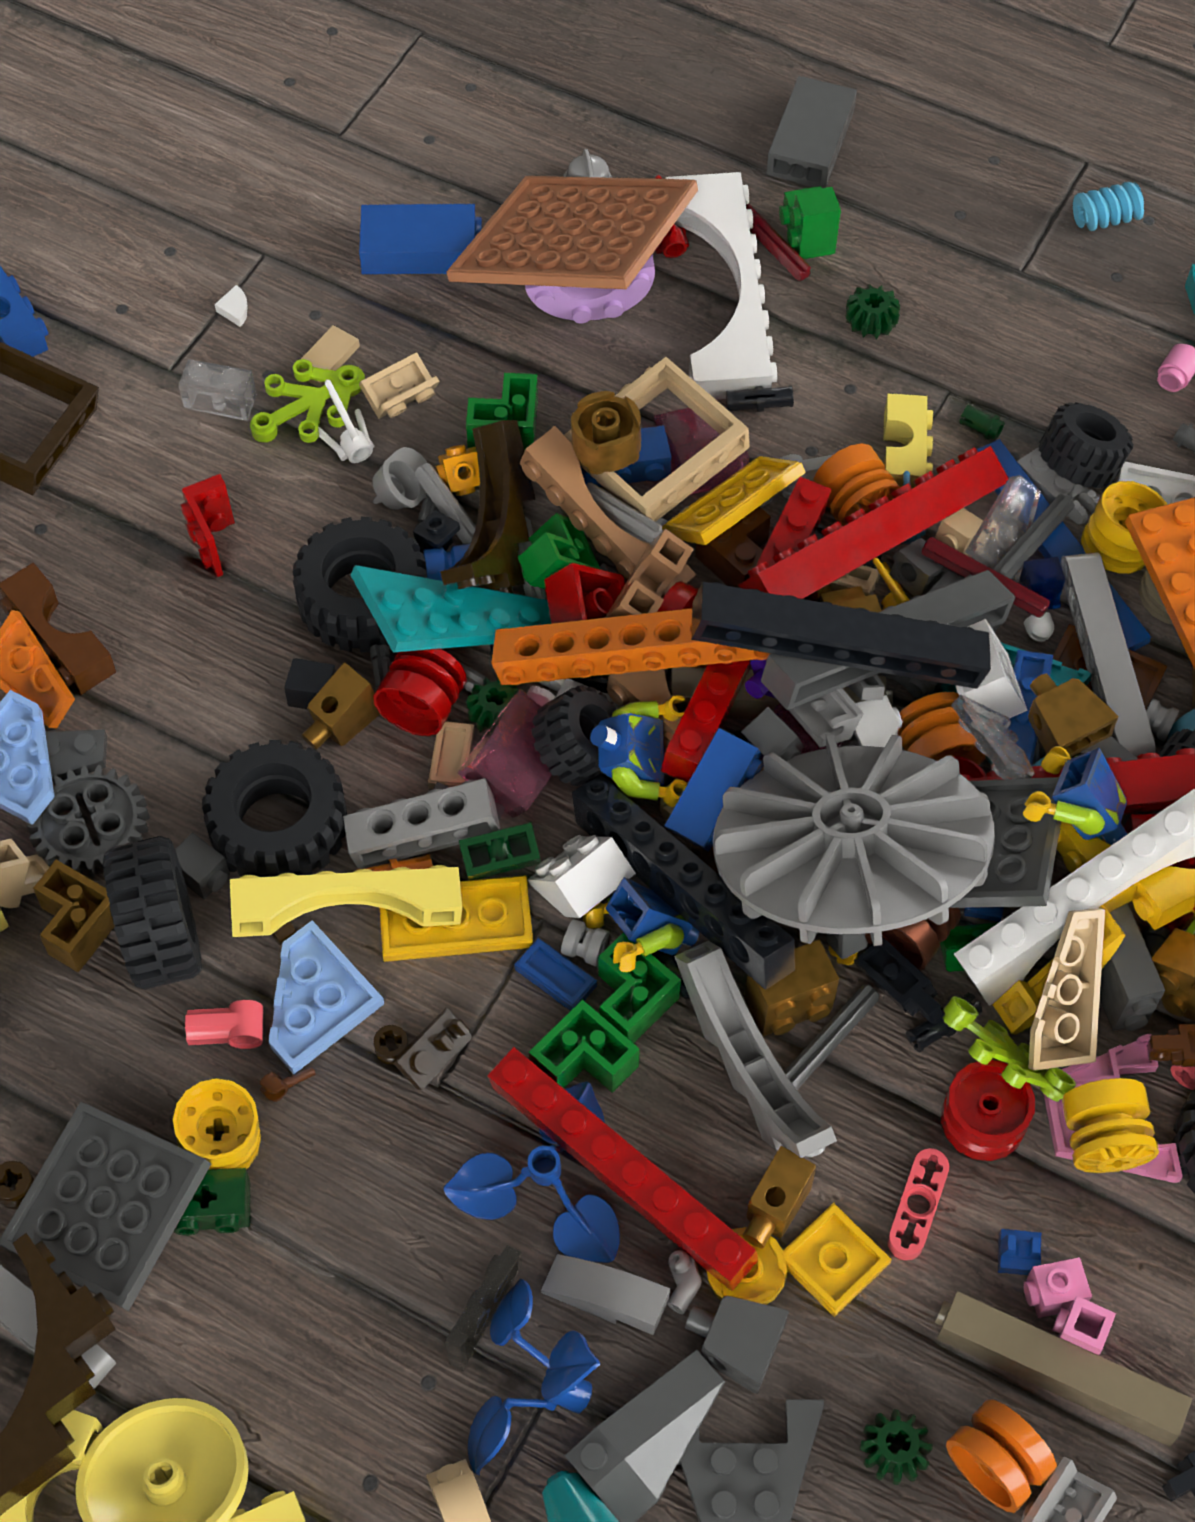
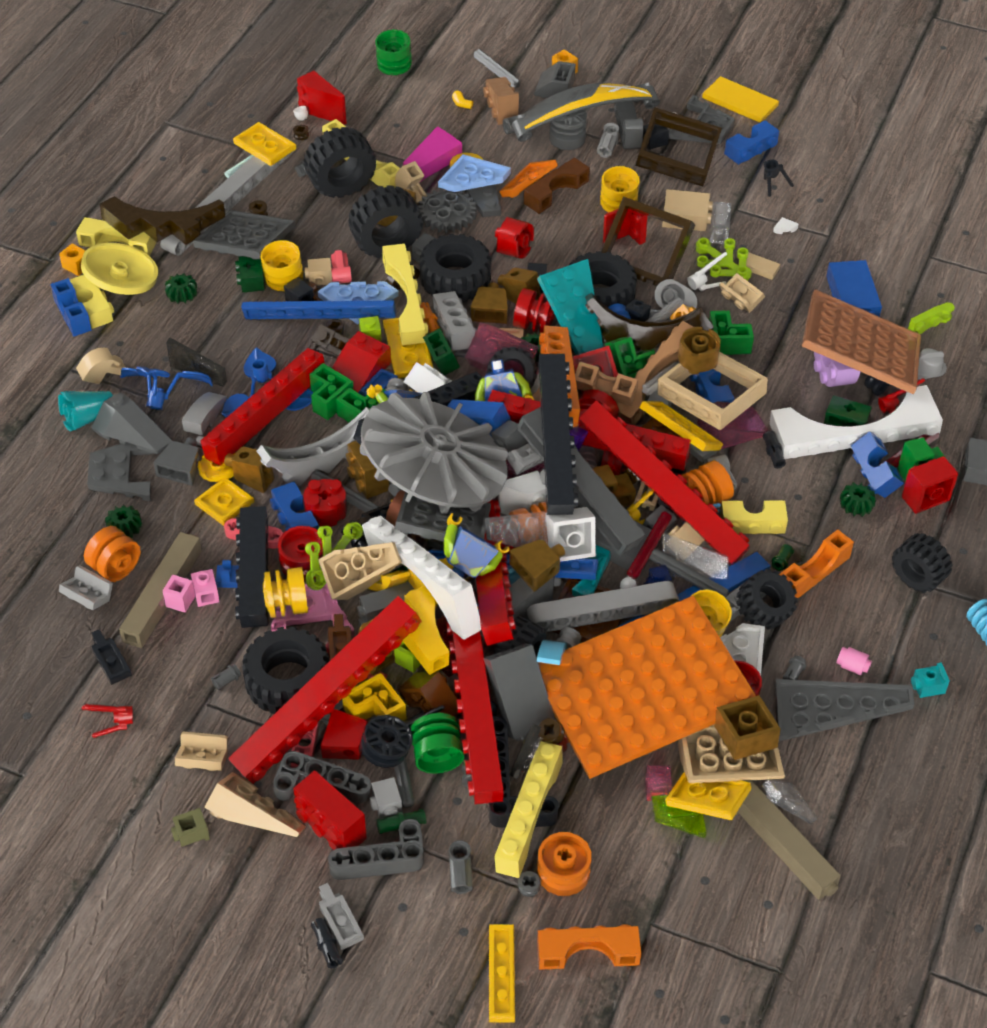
camera: 85 degrees right, 10 degrees down
(110, 522) = (615, 184): none -> yellow wheel
(120, 286) = (771, 170): none -> black plant
(170, 436) = (690, 206): none -> tan brick
(205, 493) = (687, 225): none -> dark brown window
(208, 704) = (514, 238): none -> red brick
(233, 1060) = (319, 271): none -> tan brick
(243, 1357) = (181, 288): none -> dark green gear
(289, 1106) = (298, 291): none -> black brick
(359, 1066) = (319, 309): none -> blue tile
(371, 764) = (490, 305): none -> pearl gold torso
(421, 975) = (370, 327): none -> lime brick
(495, 156) = (931, 318): none -> lime hinge
(502, 997) = (362, 359): none -> red slope
(697, 293) = (846, 413): none -> dark green brick
(838, 272) = (868, 453): none -> arch
(864, 217) = (929, 484): none -> red brick
(864, 1050) = (326, 501): none -> red brick
(916, 1120) = (288, 501): none -> blue arch
(986, 358) = (830, 555): none -> orange arch
(1016, 1197) = (252, 565): none -> black brick
(1018, 249) = (922, 562): none -> black tyre

